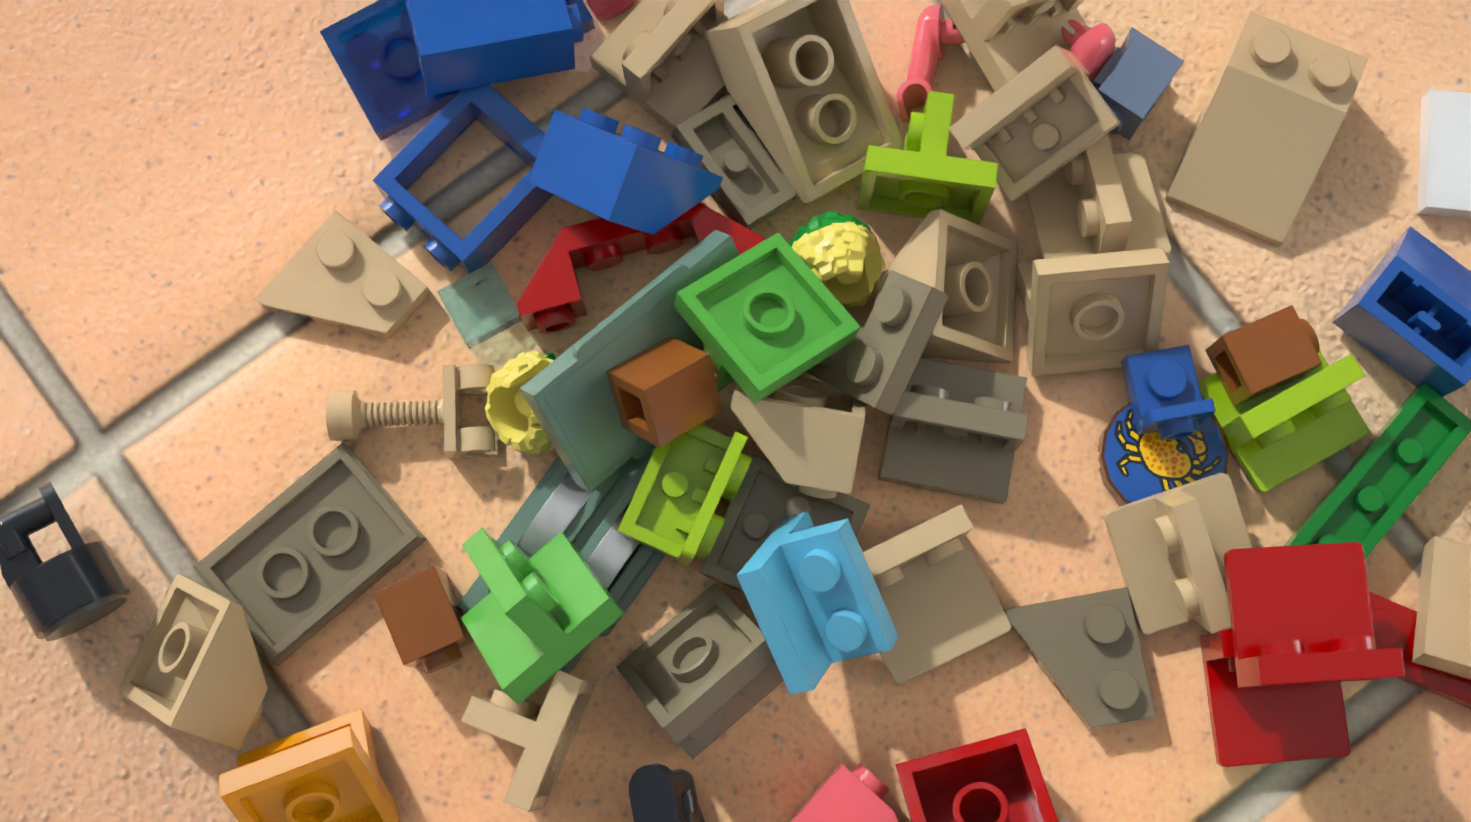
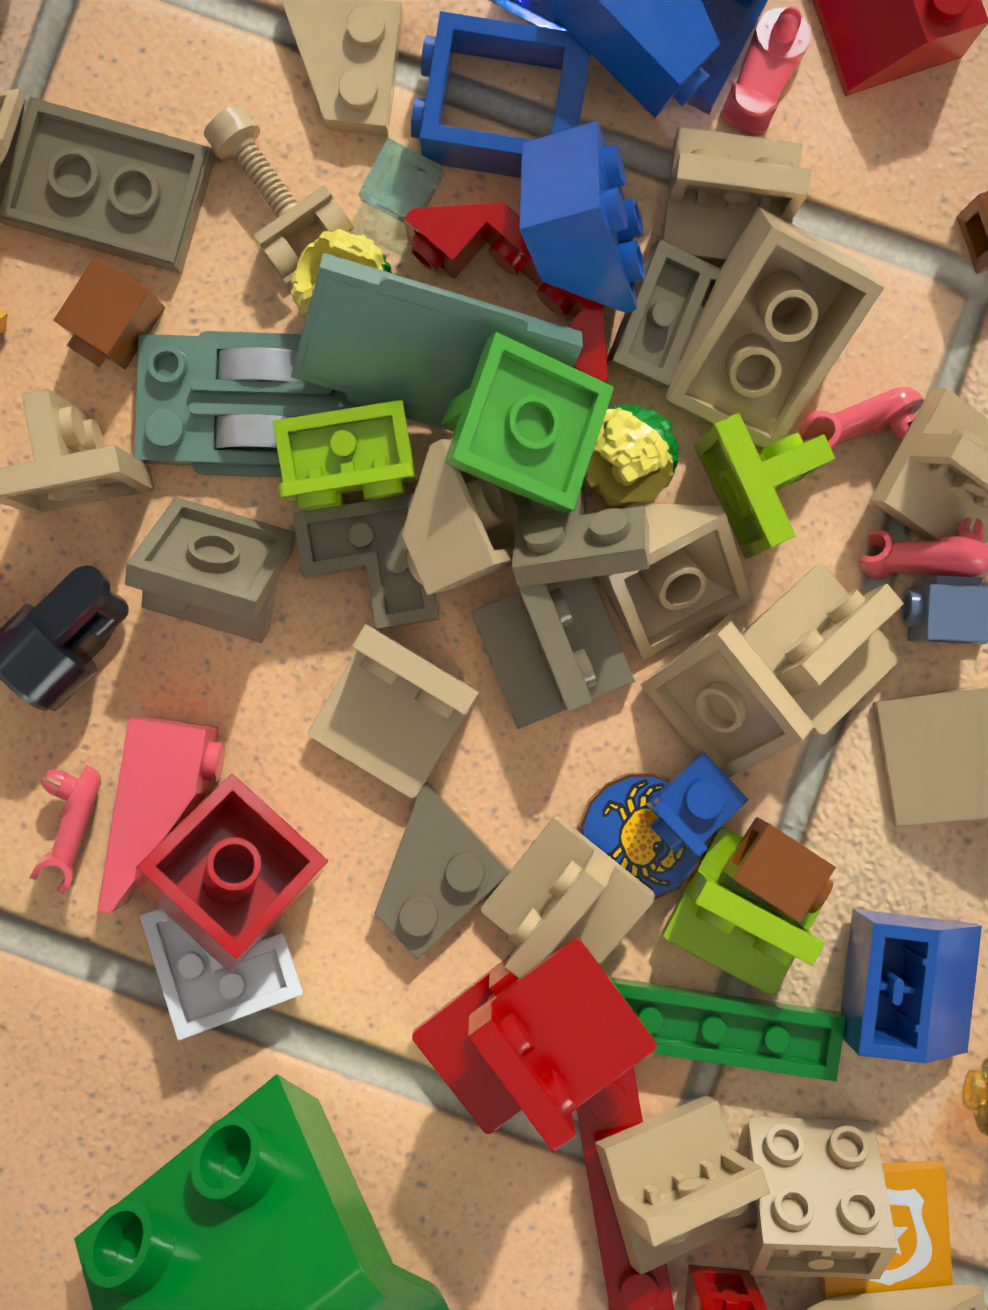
camera: 50 degrees right, 10 degrees up
(536, 610) = (158, 393): bright green bracket -> none
(665, 391) = (410, 381): dark orange brick -> none
(815, 599) = (315, 618): medium azure bracket -> none
(1037, 122) = (859, 546): tan bracket -> none

